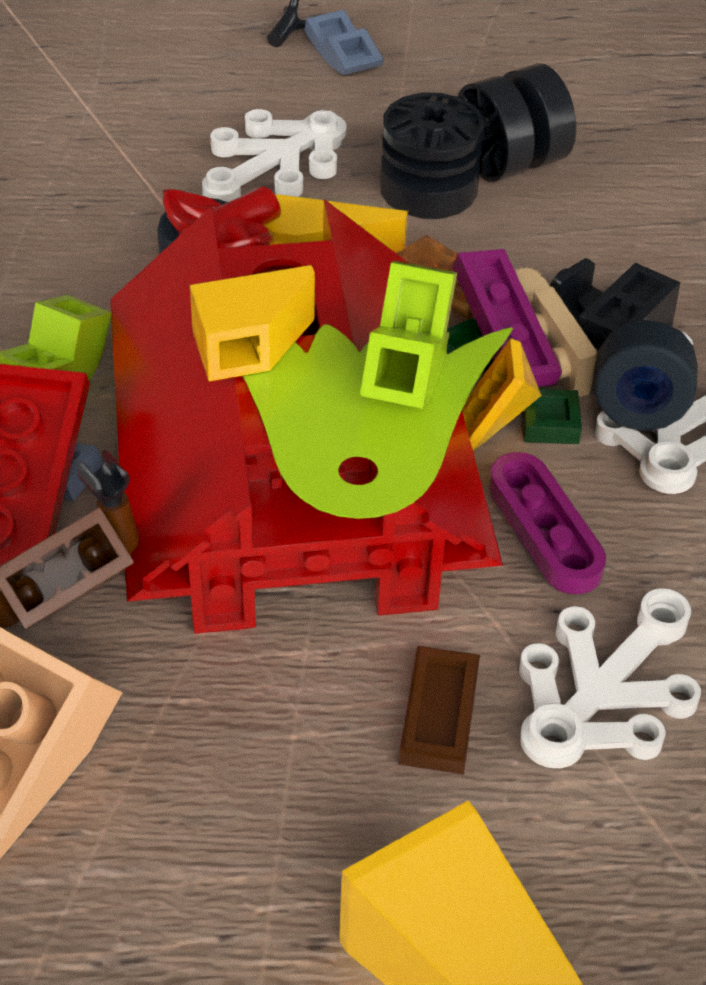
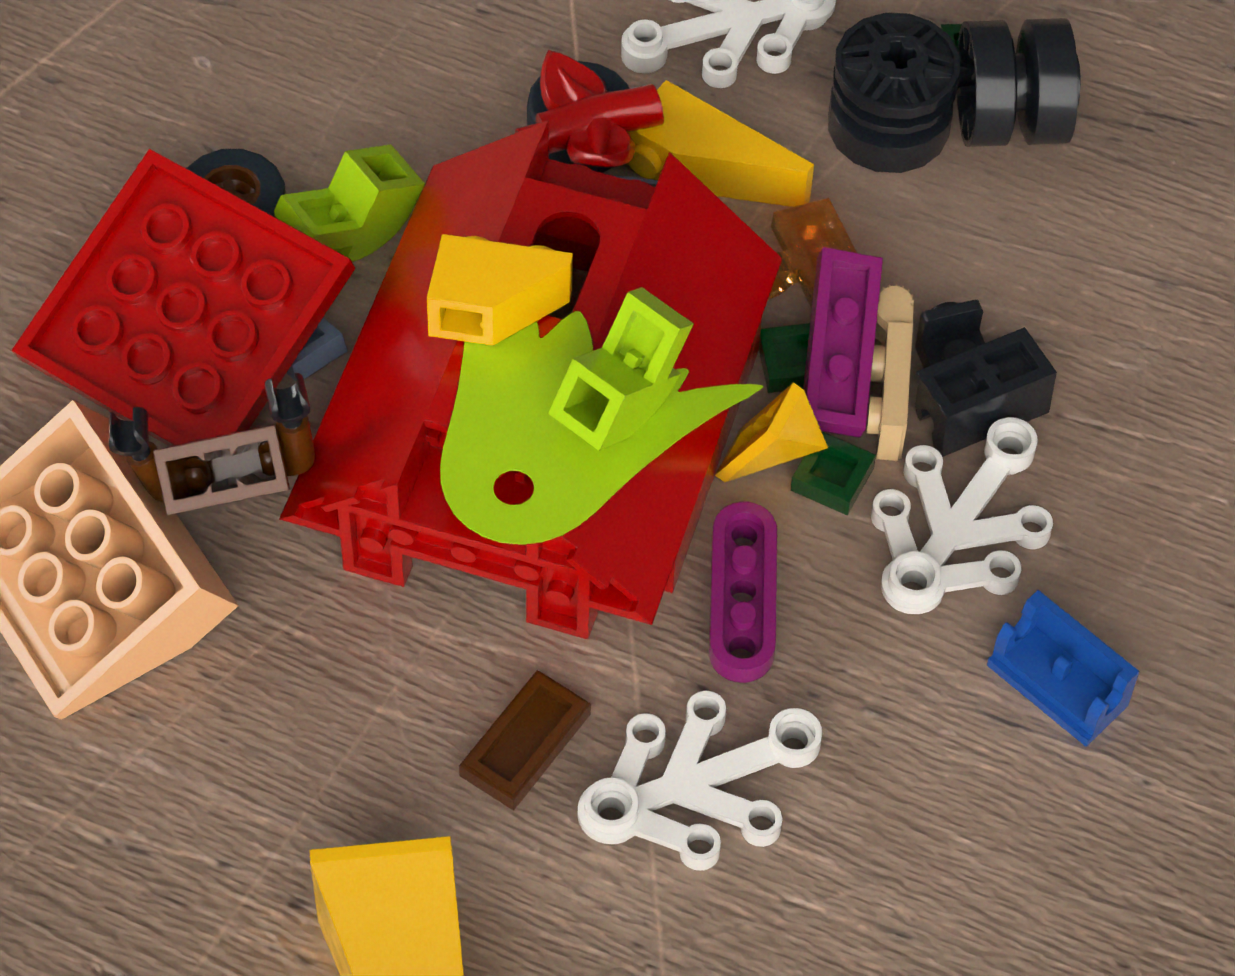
camera: 25 degrees right, 10 degrees up
(646, 375) = (935, 472): black wheel -> none

